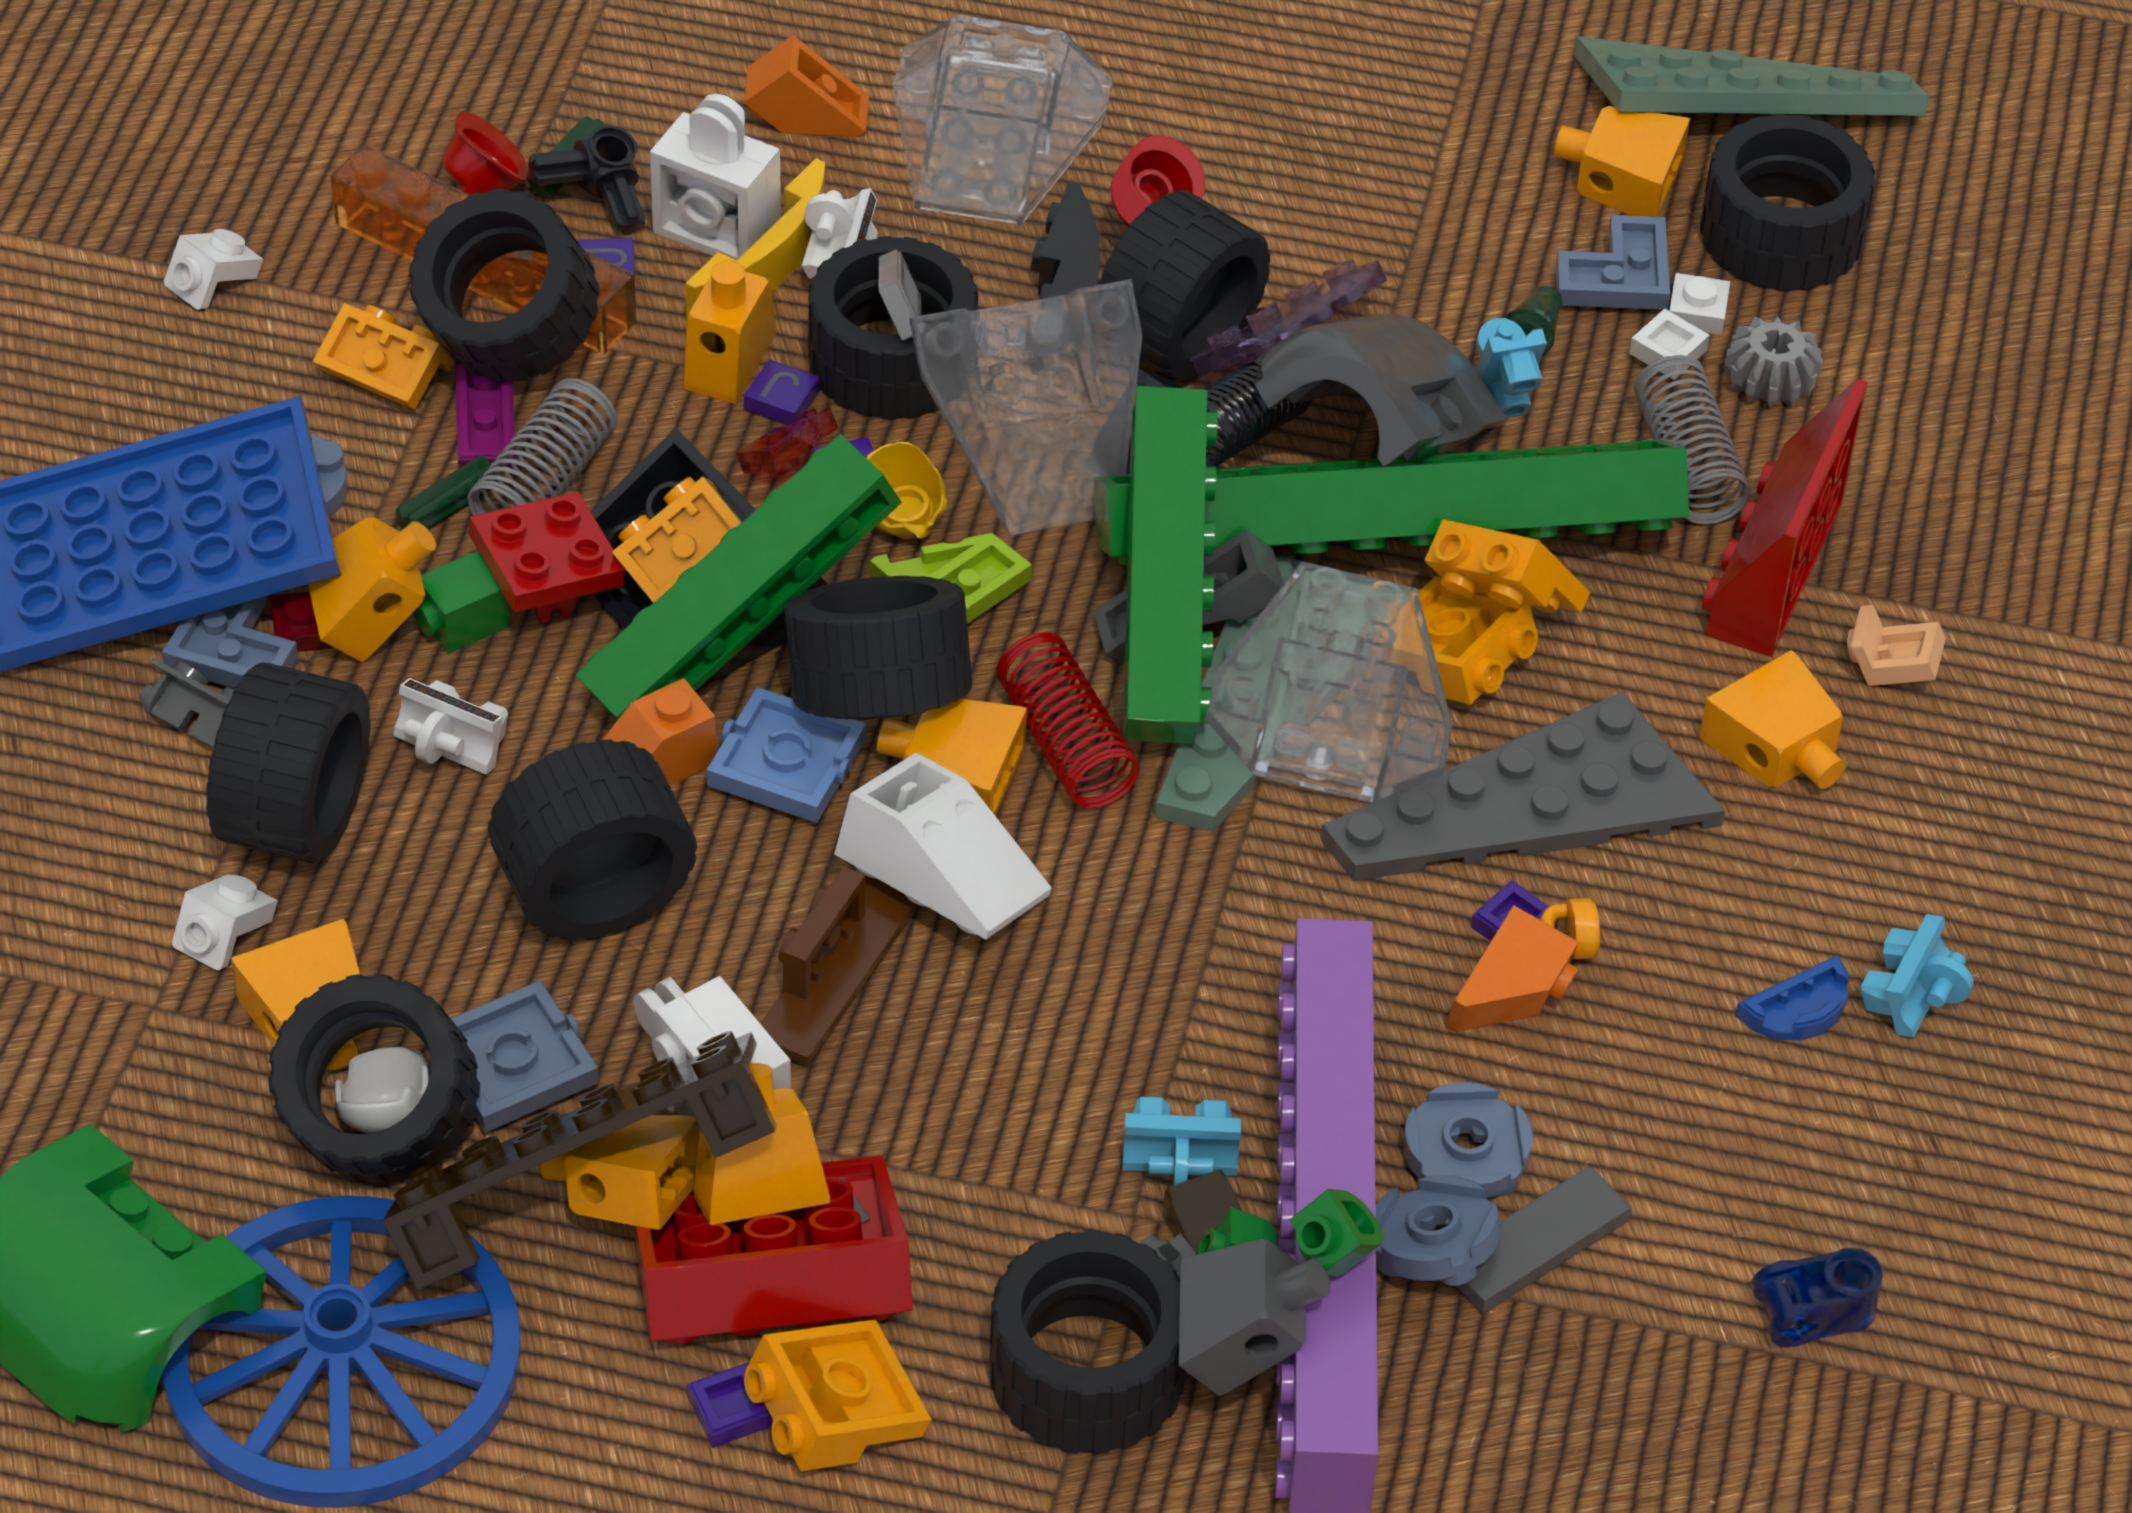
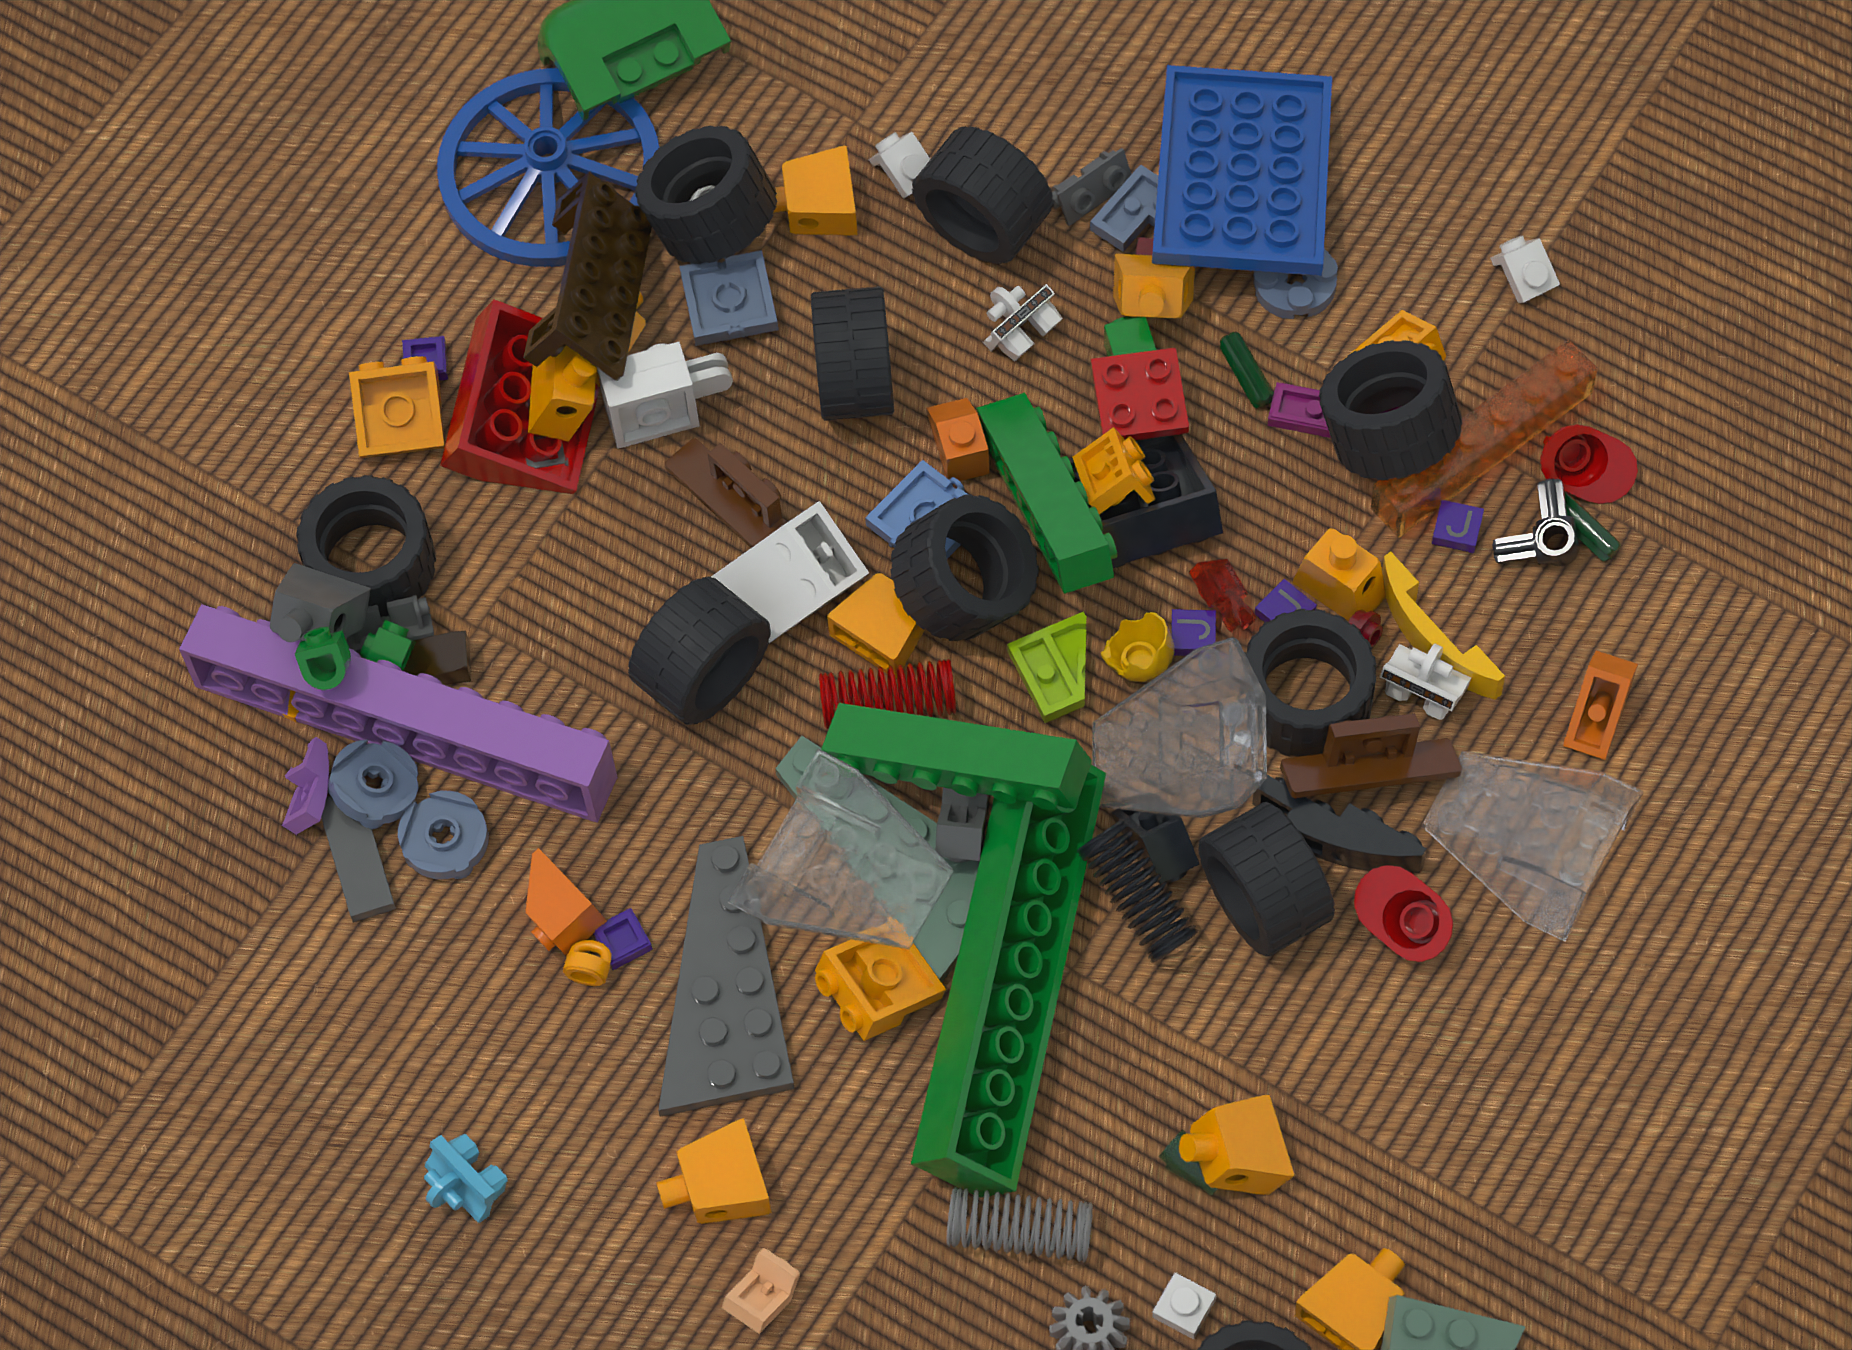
camera: 115 degrees right, 15 degrees up
(570, 428) = (1280, 467): light grey piece -> none
(713, 181) = (1488, 596): white brick -> none
(790, 308) = (1368, 624): none -> dark red plate
(898, 291) = (1300, 666): light grey tile -> none
(990, 254) = (1371, 756): none -> reddish brown bracket
(1111, 884) = (699, 650): none -> black tyre
(1181, 1144) = (501, 674): medium azure hips -> none
(1271, 324) = (1230, 965): wing -> none
(1408, 373) = (1104, 977): dark grey piece -> none
(1481, 1304) = (312, 788): none -> medium lavender slope
(1504, 567) = (901, 1012): light orange plate -> none
(1510, 363) = (1129, 1107): medium azure hips -> none
(1514, 260) = (1239, 1147): none -> light orange torso
(1627, 277) = (1226, 1262): sand blue plate -> none
(1668, 337) = (1137, 1257): white plate -> none
(1785, 529) = (887, 1244): red slope -> none
(1799, 1005) = (478, 1102): blue tile -> none
(1815, 1295) = (234, 996): clear blue piece -> none

